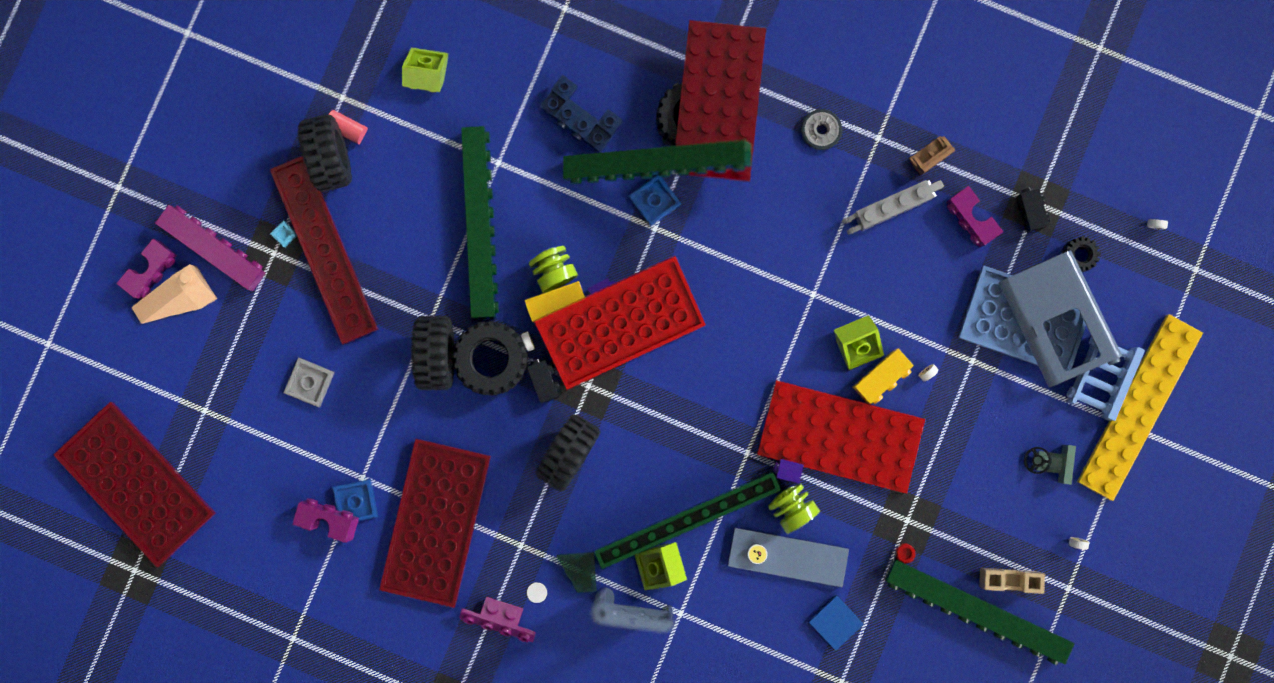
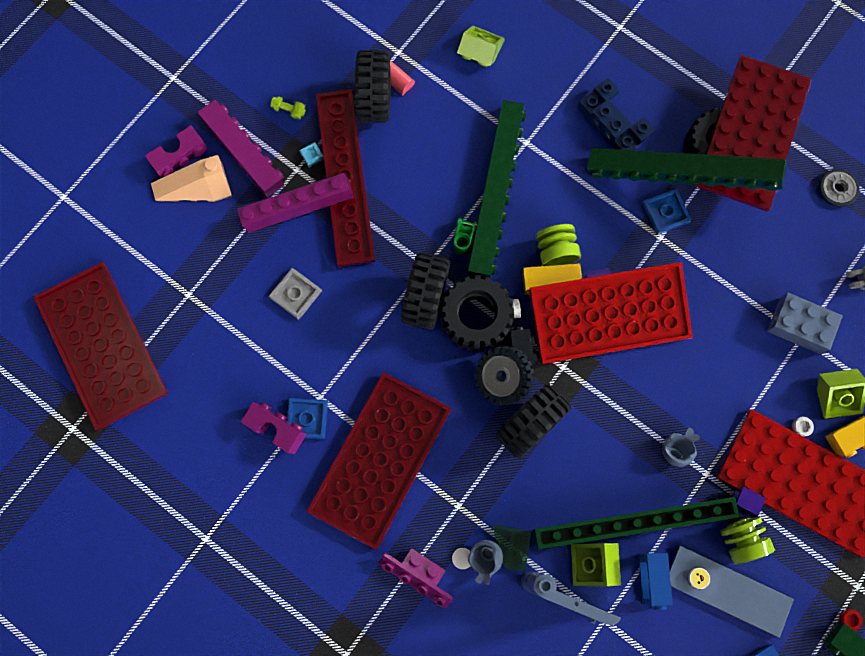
camera: 10 degrees right, 10 degrees down
(256, 190) = (297, 110): none -> lime bar
(282, 293) = (295, 203): none -> magenta brick
(458, 277) = (464, 233): none -> green piece
(531, 426) = (517, 375): none -> wheel
(557, 590) = (485, 559): none -> sand blue hat
(715, 438) = (680, 449): none -> sand blue hat
(716, 567) = (655, 580): none -> blue window
(811, 282) = (805, 323): none -> sand blue brick
(829, 384) = (803, 426): none -> white tile

